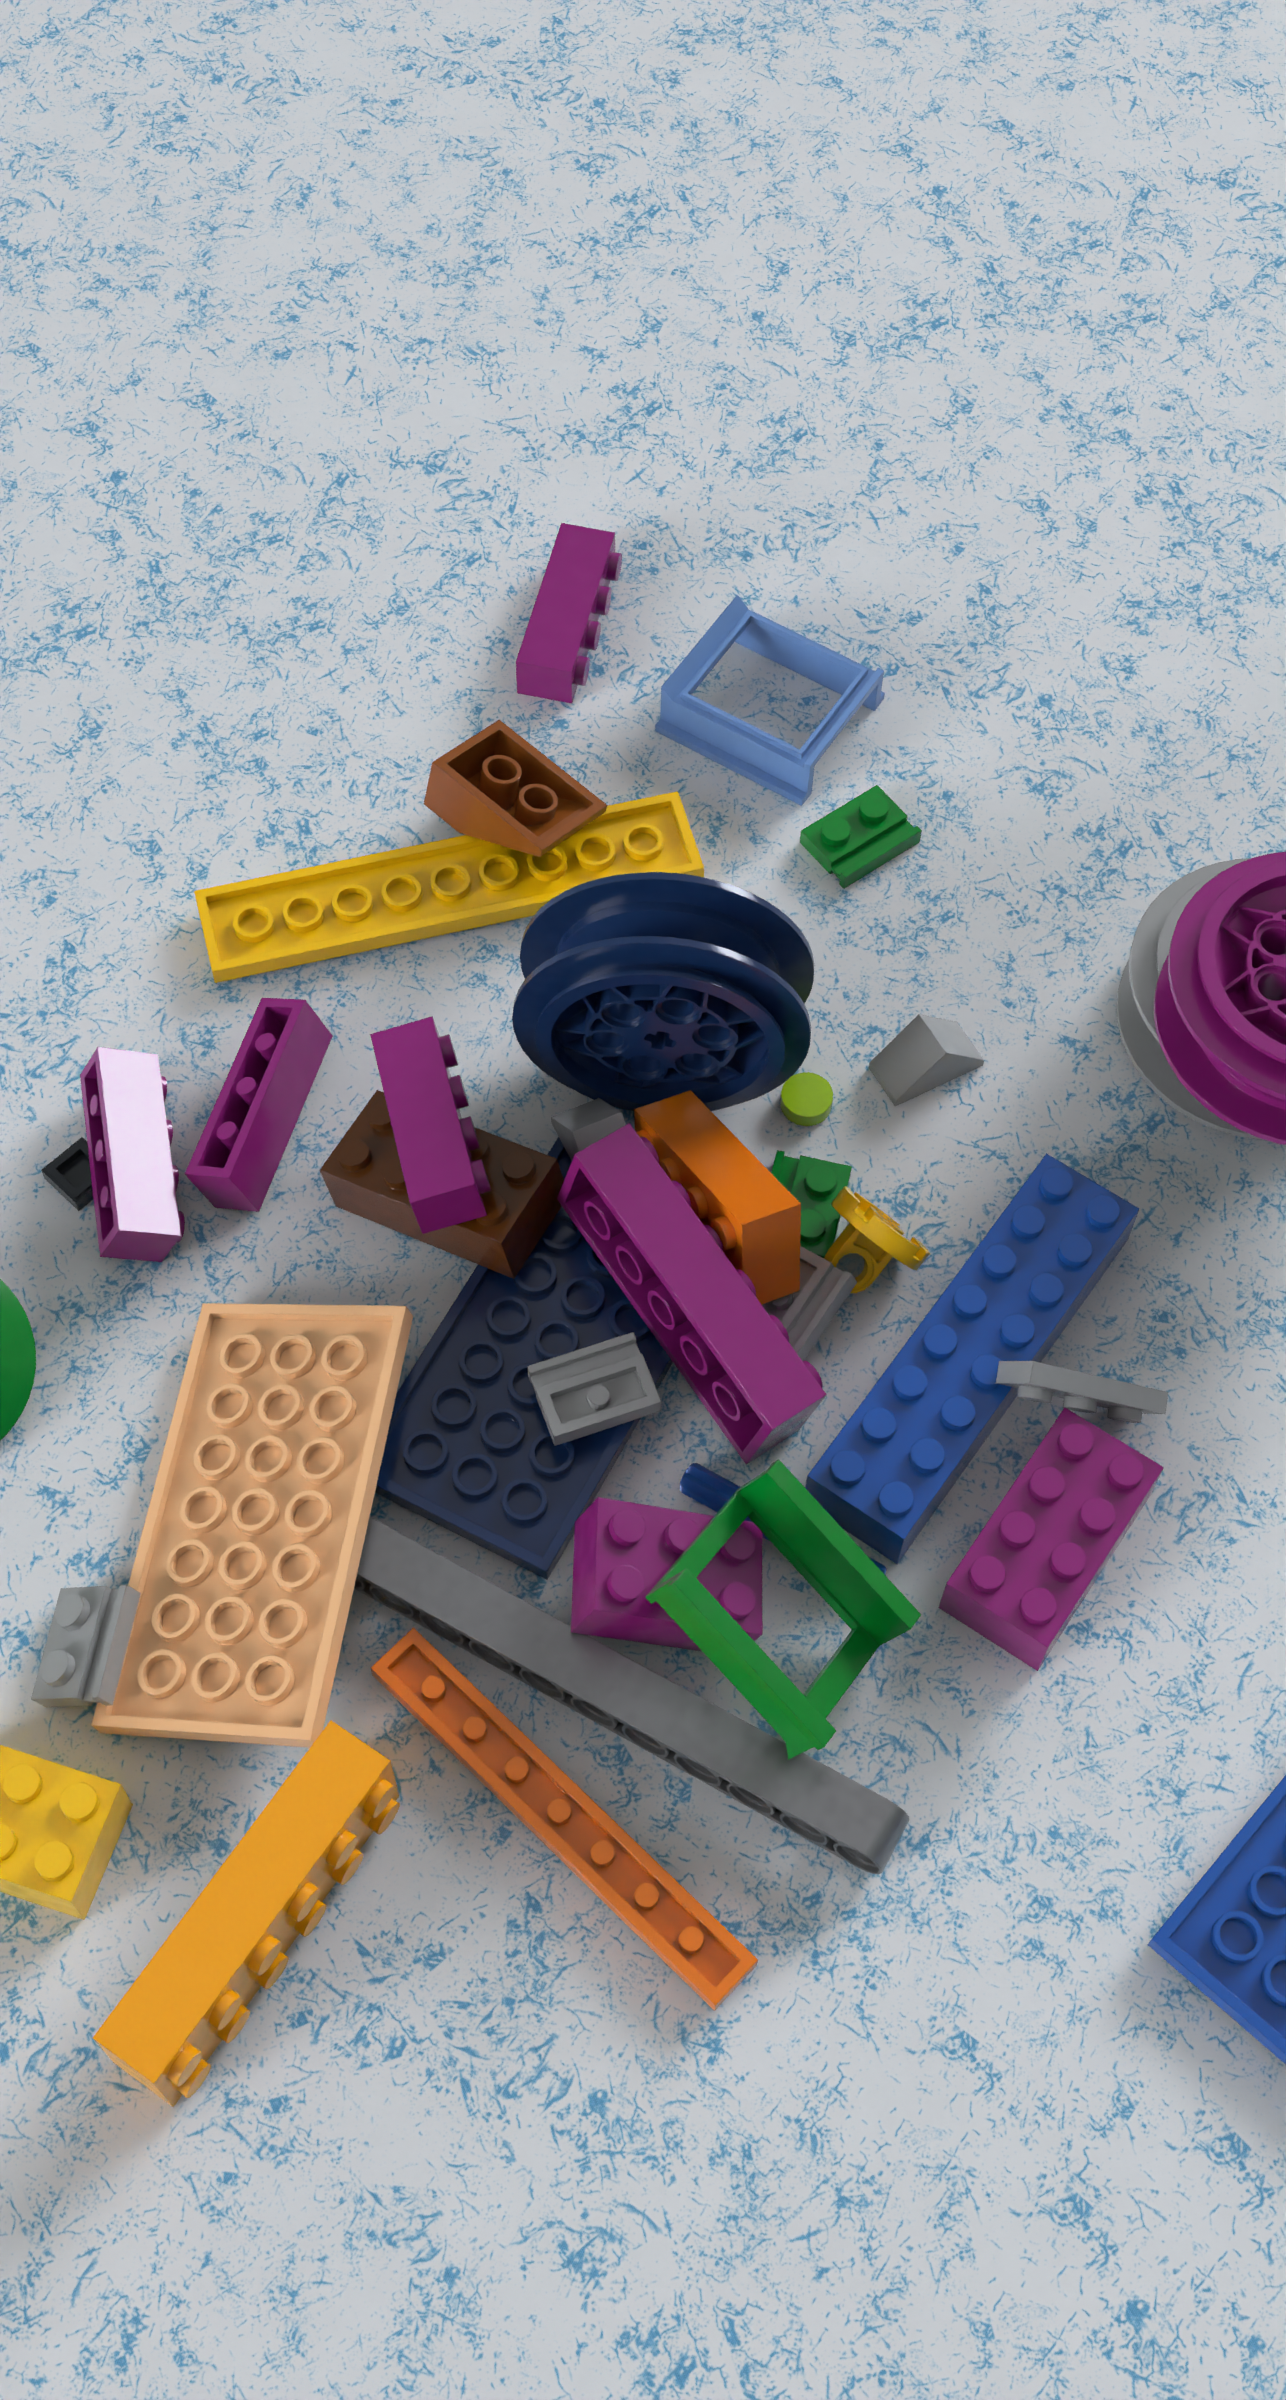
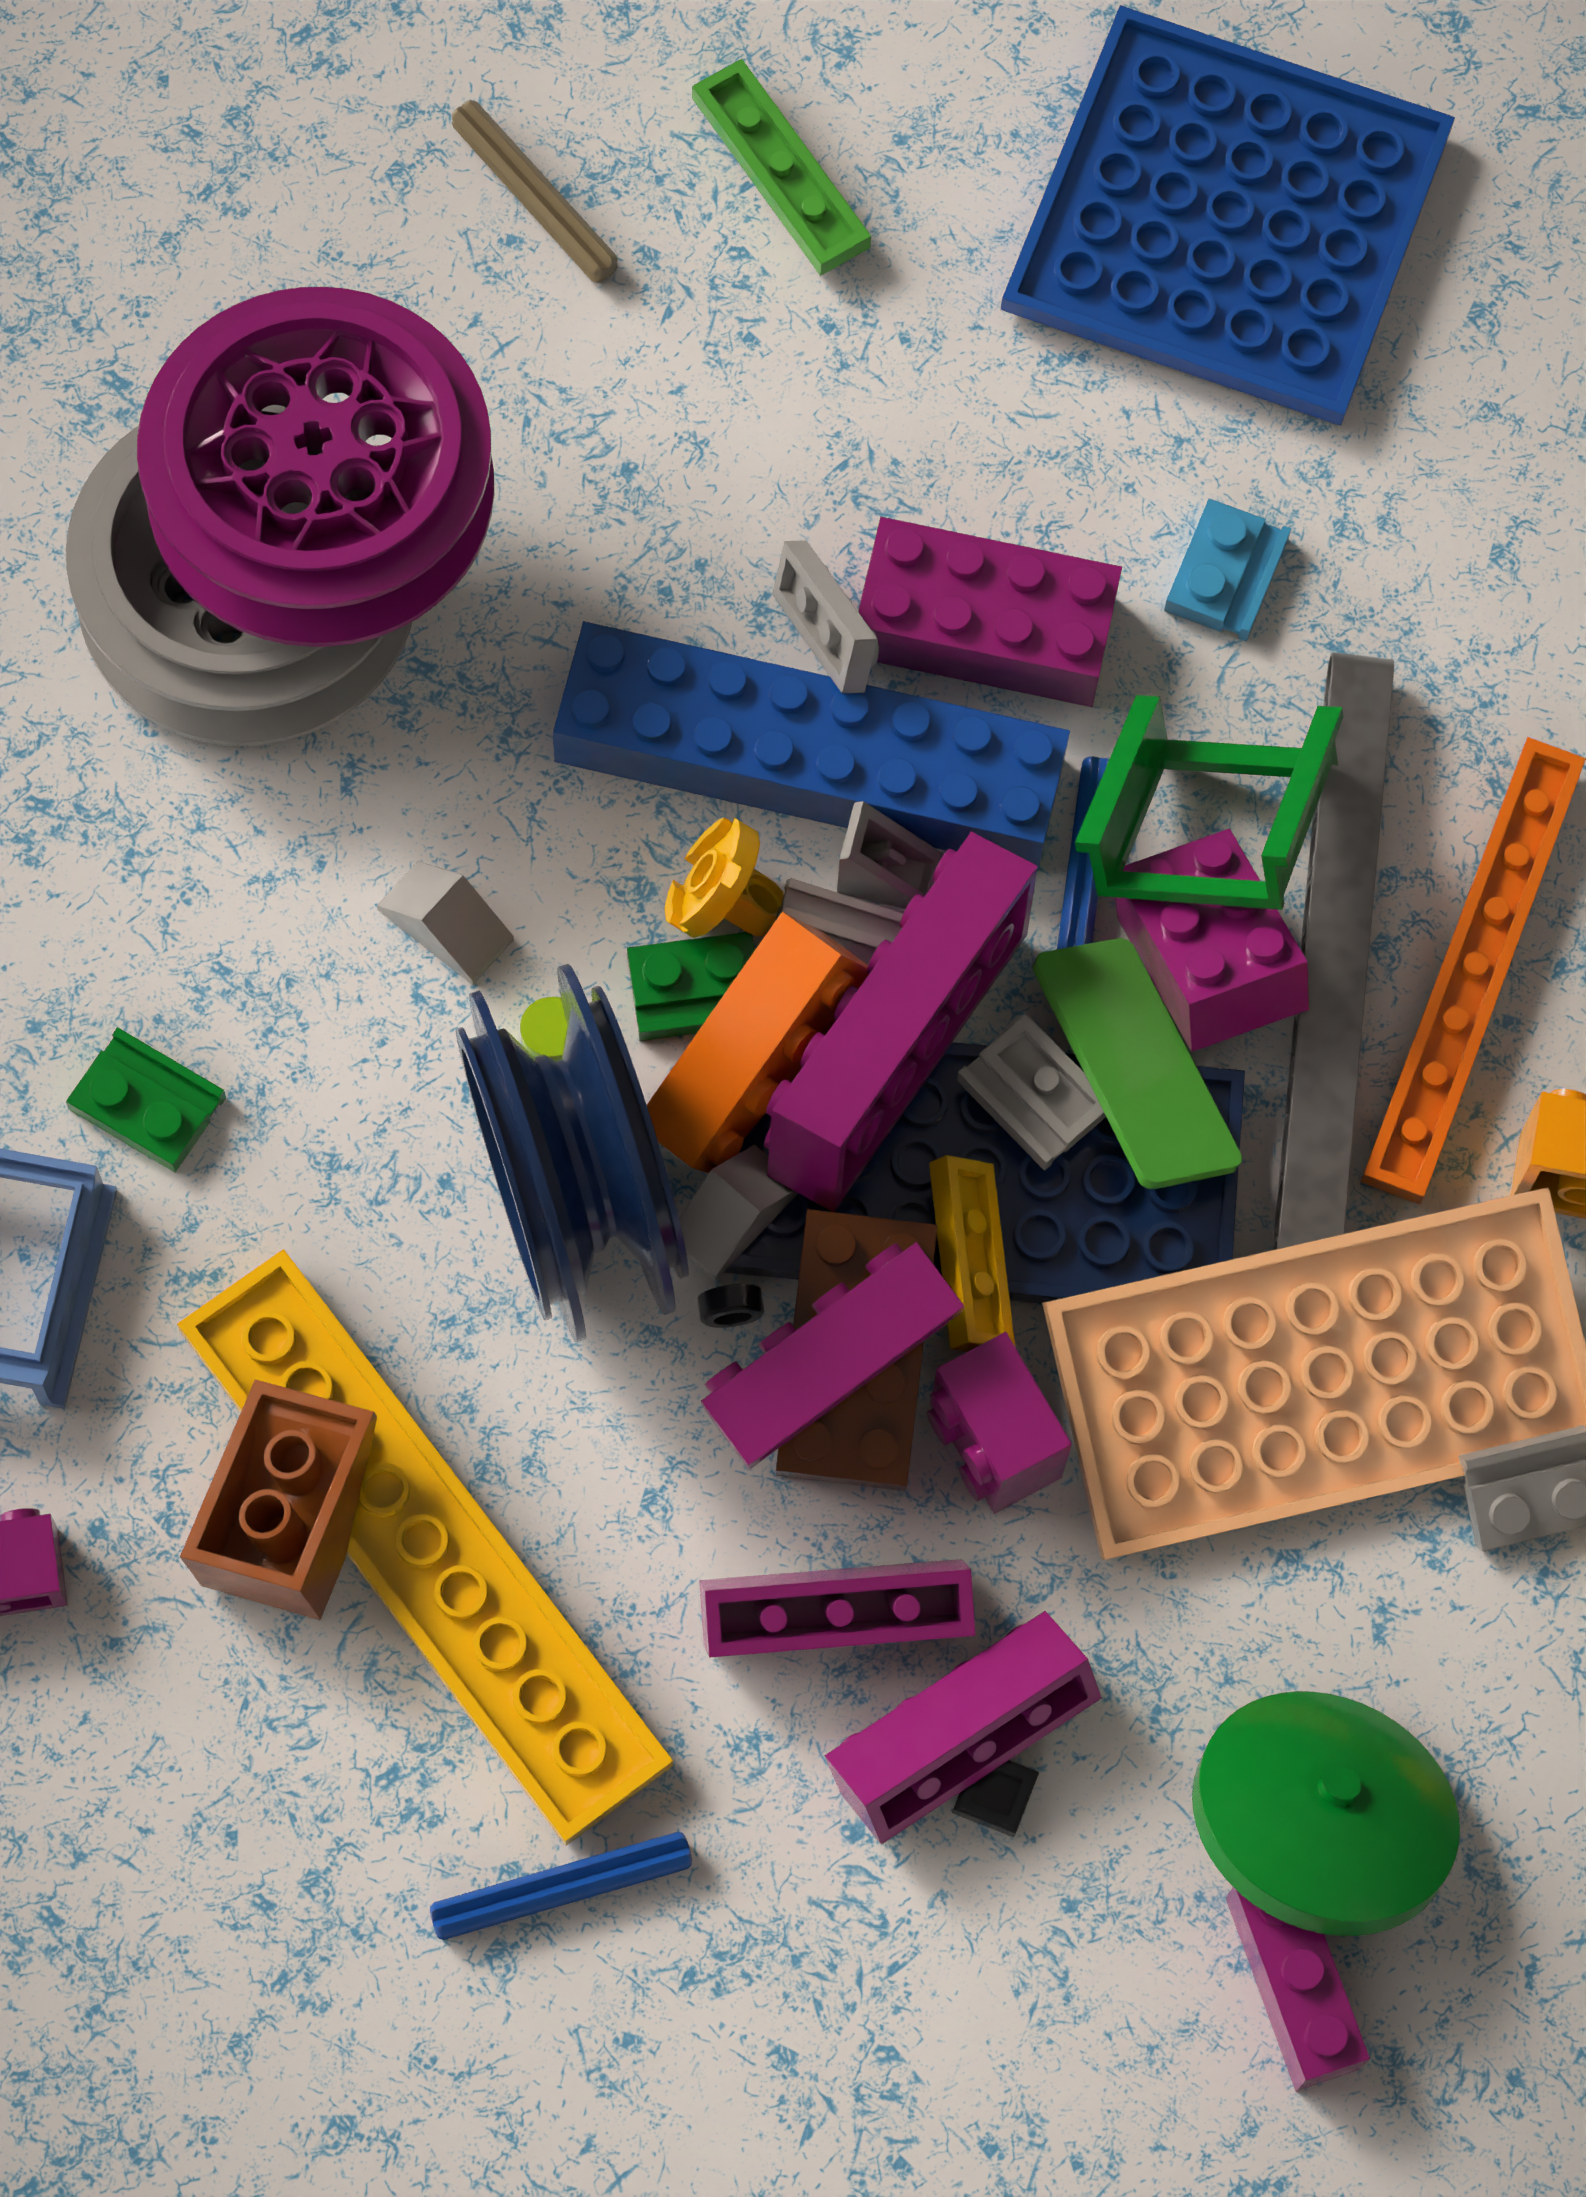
camera: 115 degrees left, 10 degrees up
(170, 891) = (560, 1885): none -> blue axle
(336, 1252) = (998, 1424): none -> magenta brick
(478, 1286) = (971, 1249): none -> yellow plate
(529, 1125) = (731, 1305): none -> black tile
(557, 1469) = (1136, 1063): none -> bright green piece
(852, 1366) = (884, 860): none -> light grey slope
(1030, 1774) = (1227, 569): none -> dark azure plate

